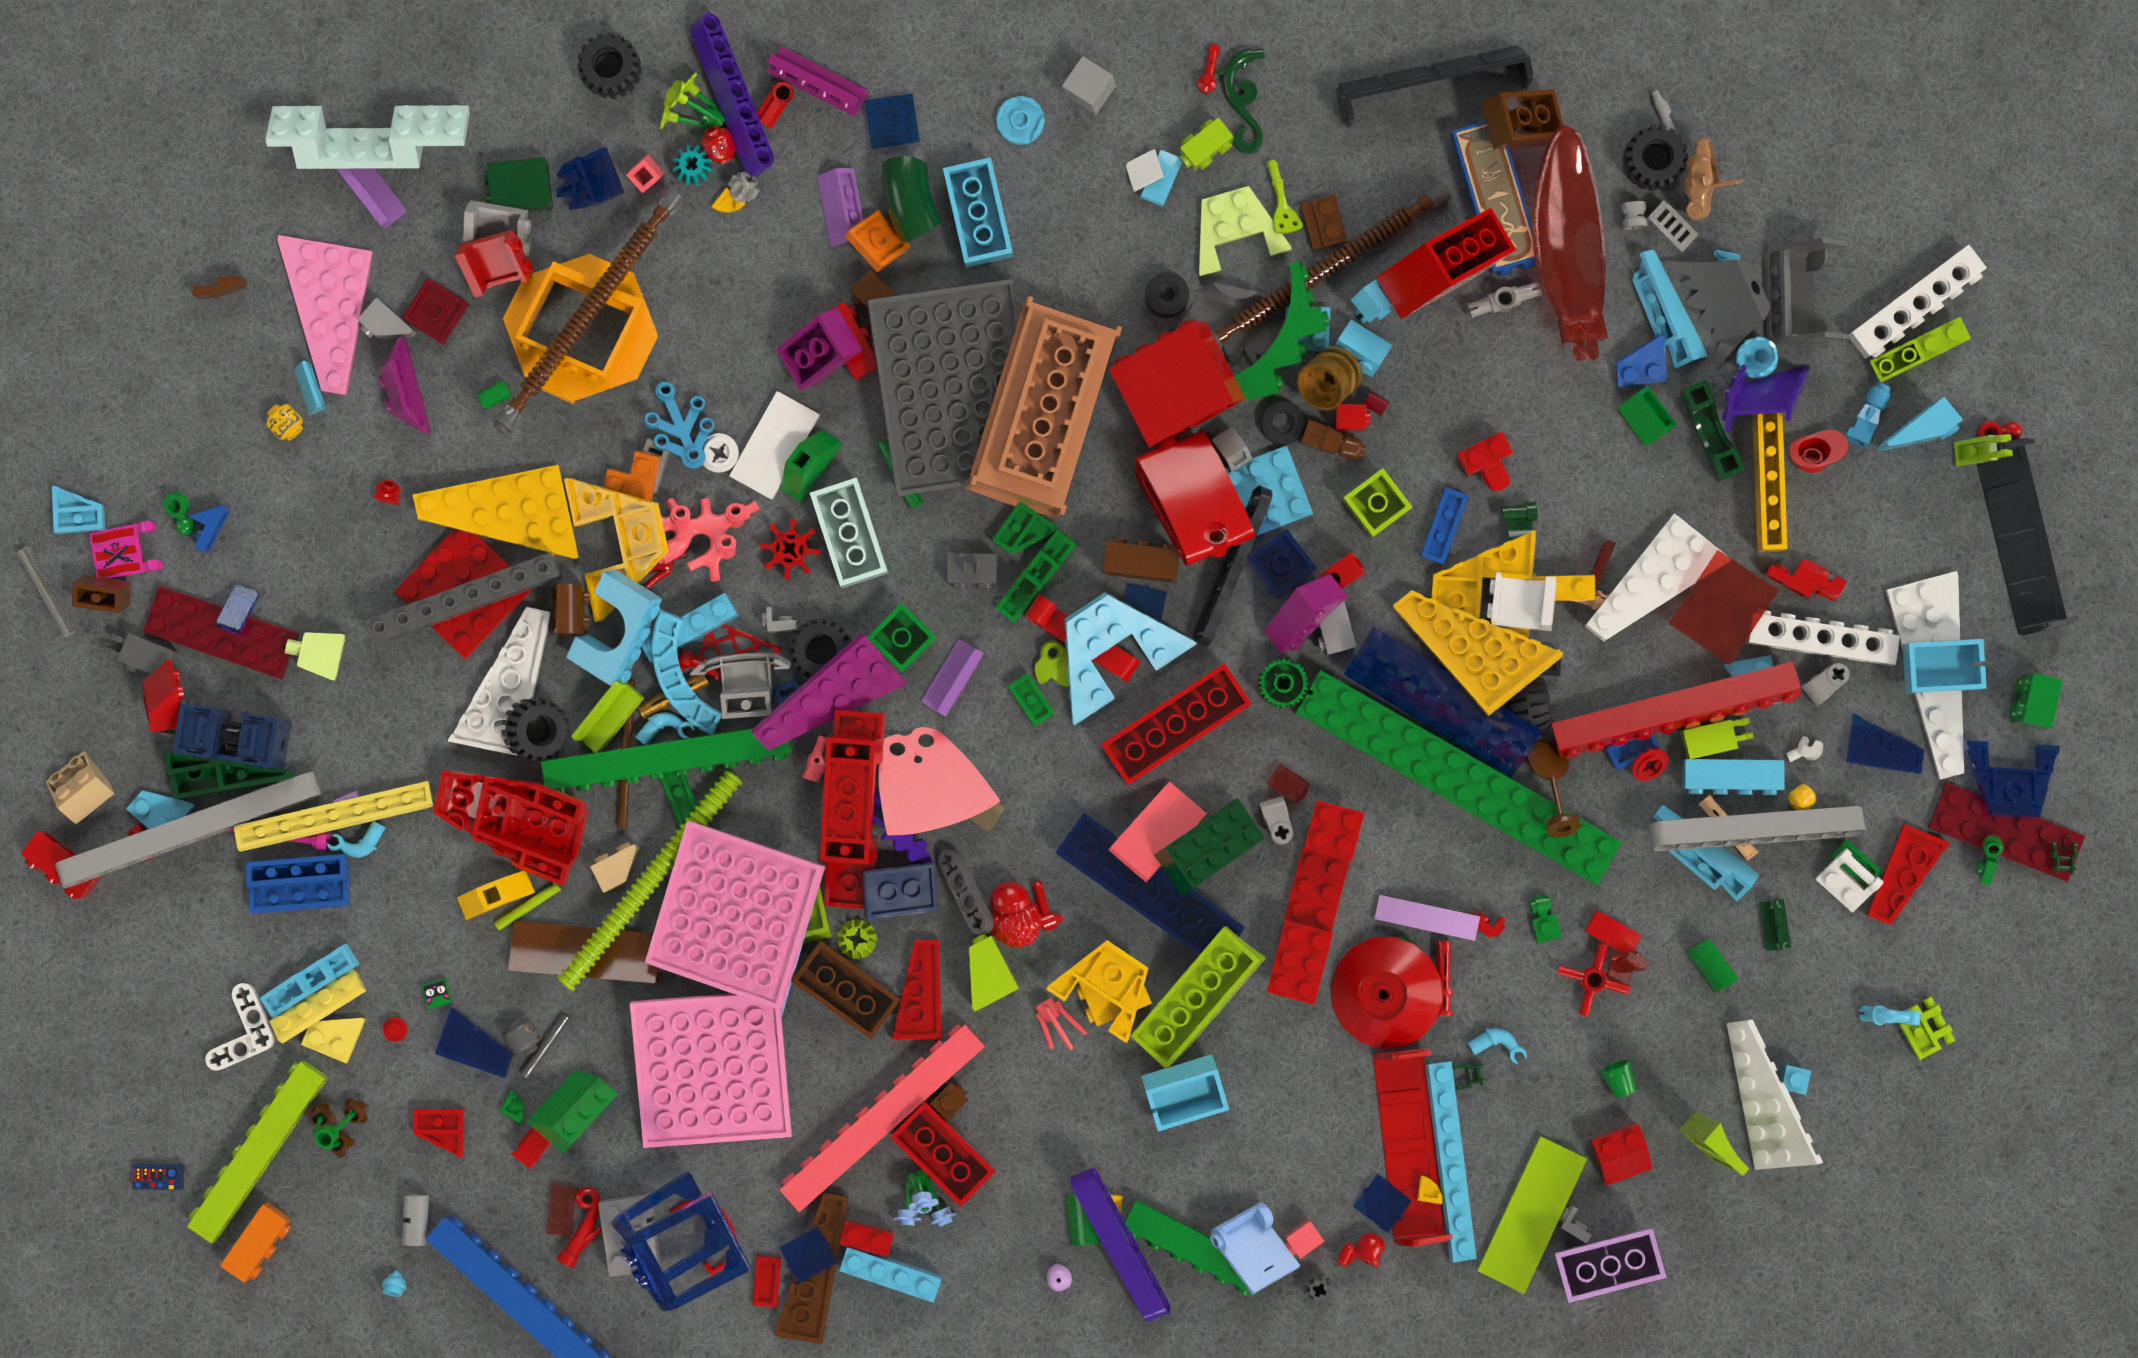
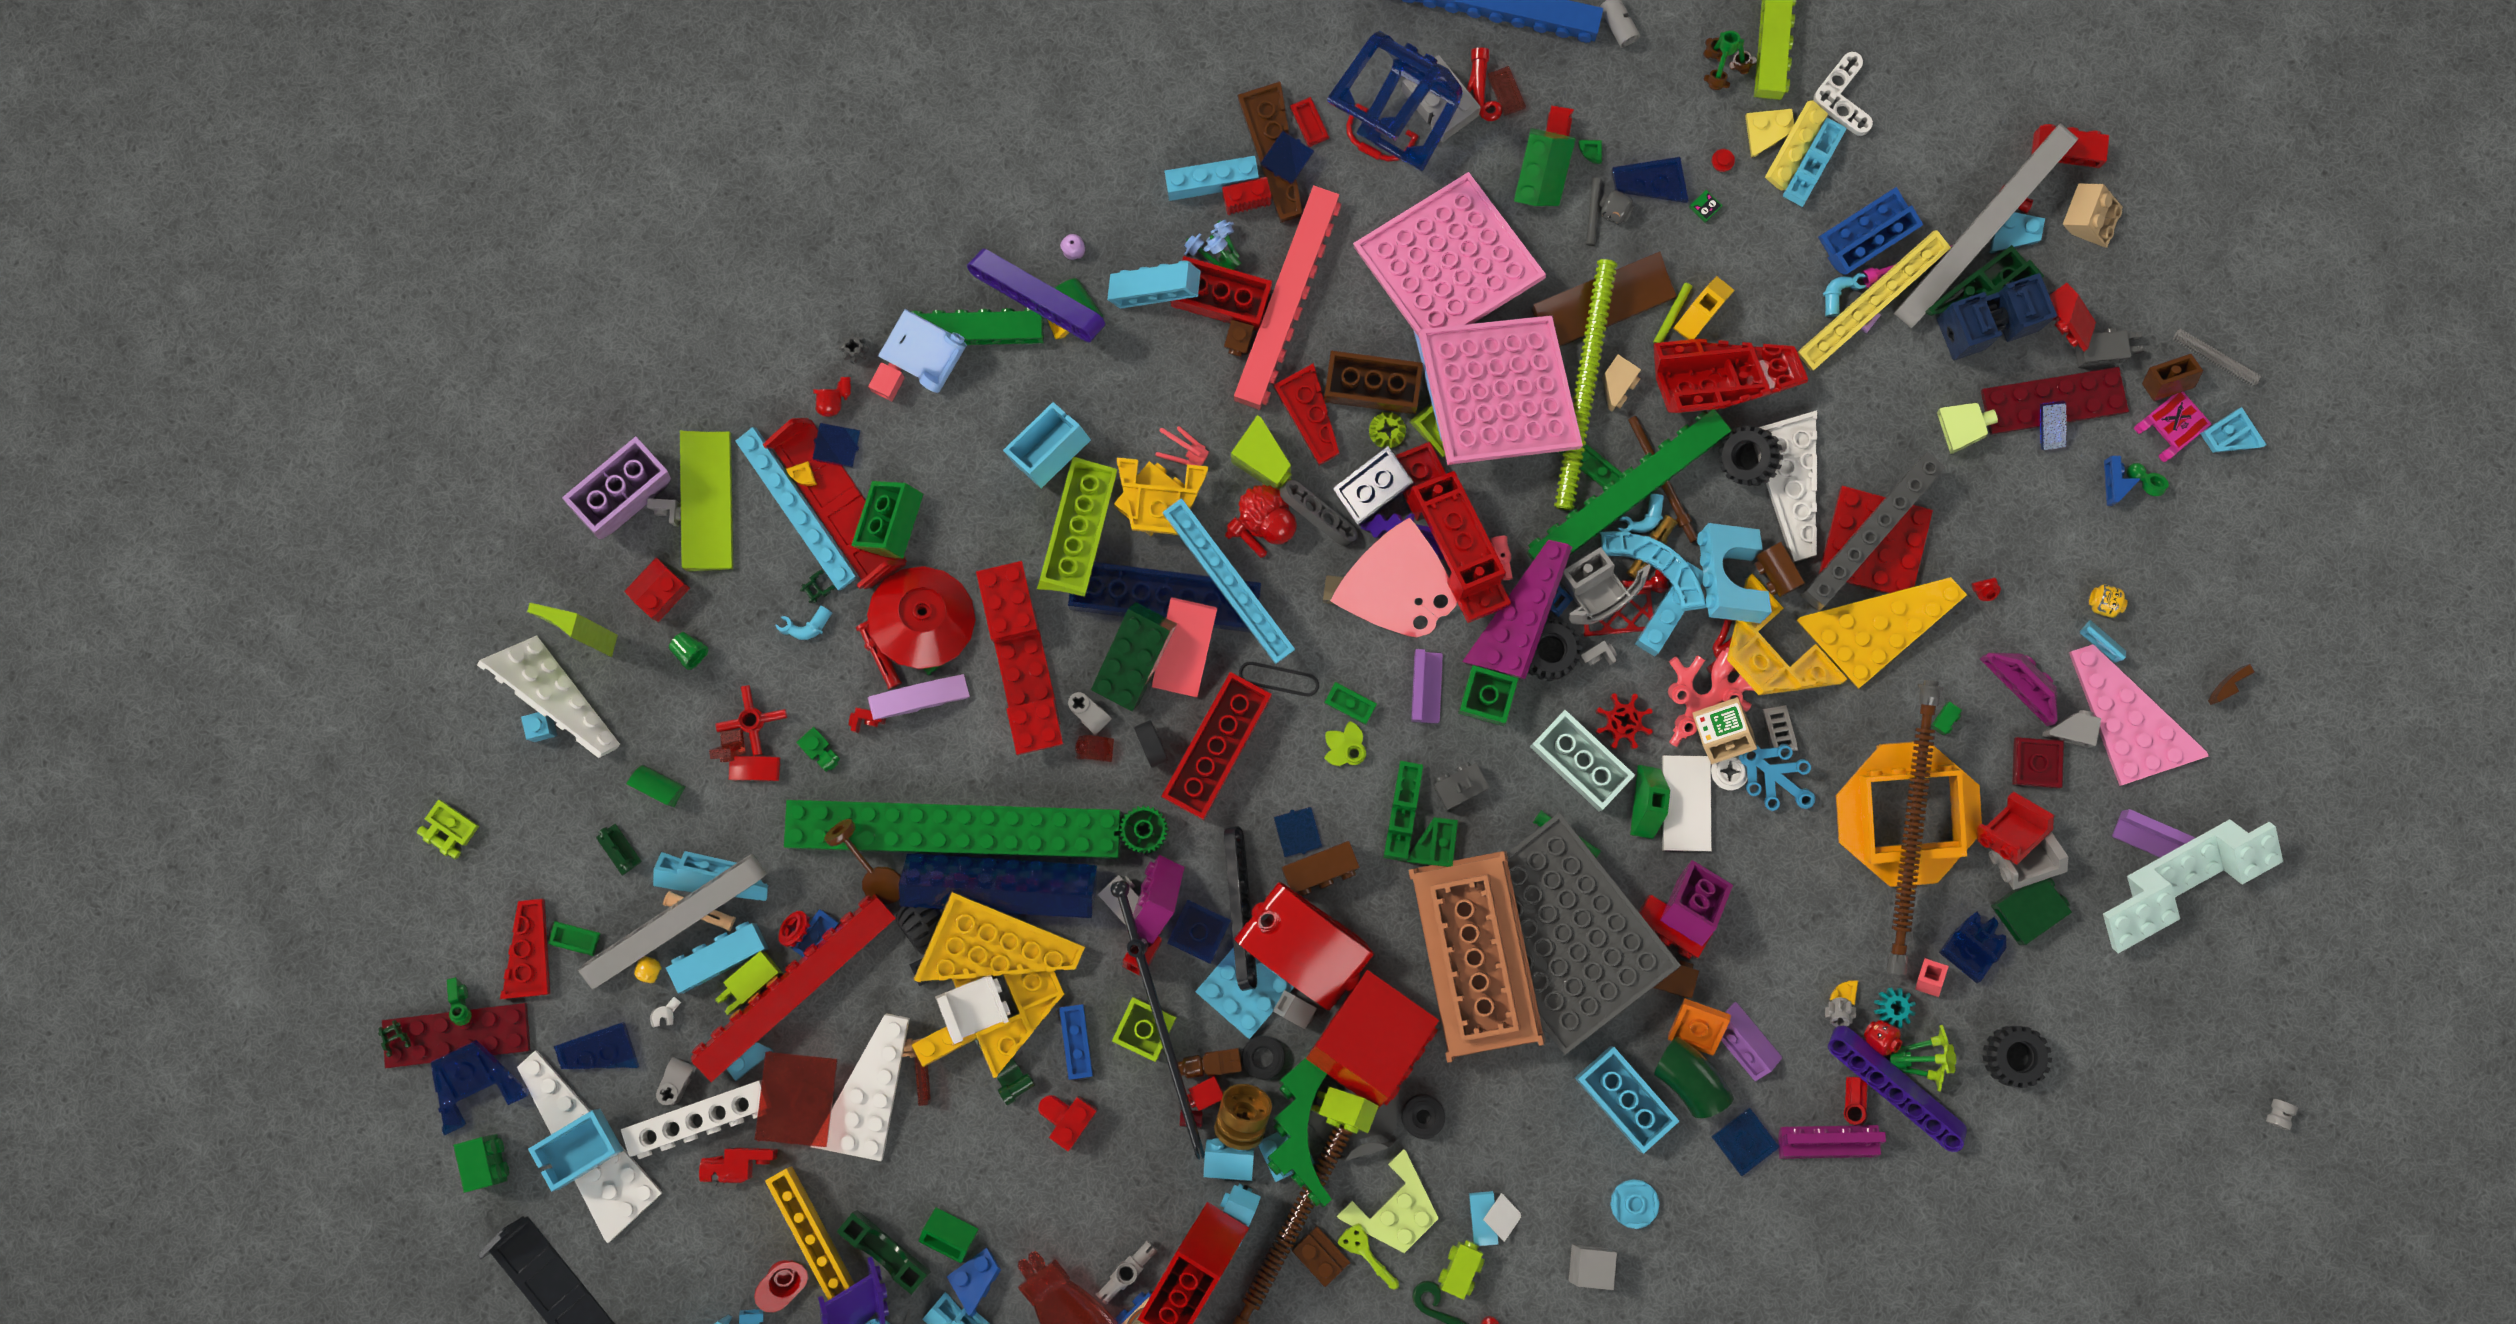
camera: 150 degrees right, 5 degrees down
(441, 1128) = (1640, 103): red wing -> none
(608, 716) = (1696, 500): lime panel -> none
(641, 479) = (1783, 709): orange plate -> none
(705, 489) = (1724, 730): none -> slope
(1003, 1192) = (1154, 284): none -> medium azure brick
(1051, 620) = (1343, 777): red beam -> none
(1085, 869) = (1228, 581): none -> medium azure plate
(1091, 751) = (1284, 670): none -> black piece
(1097, 629) = (1324, 793): medium azure wing -> none
(1233, 334) = (1346, 1109): none -> lime hinge
(1235, 758) = (1151, 744): none -> black tyre
(1347, 574) = (1120, 890): none -> black bar
(1370, 1103) = (887, 519): none -> green slope
(1843, 885) = (572, 913): white plate -> none
(1882, 1015) = (488, 818): medium azure piece -> none

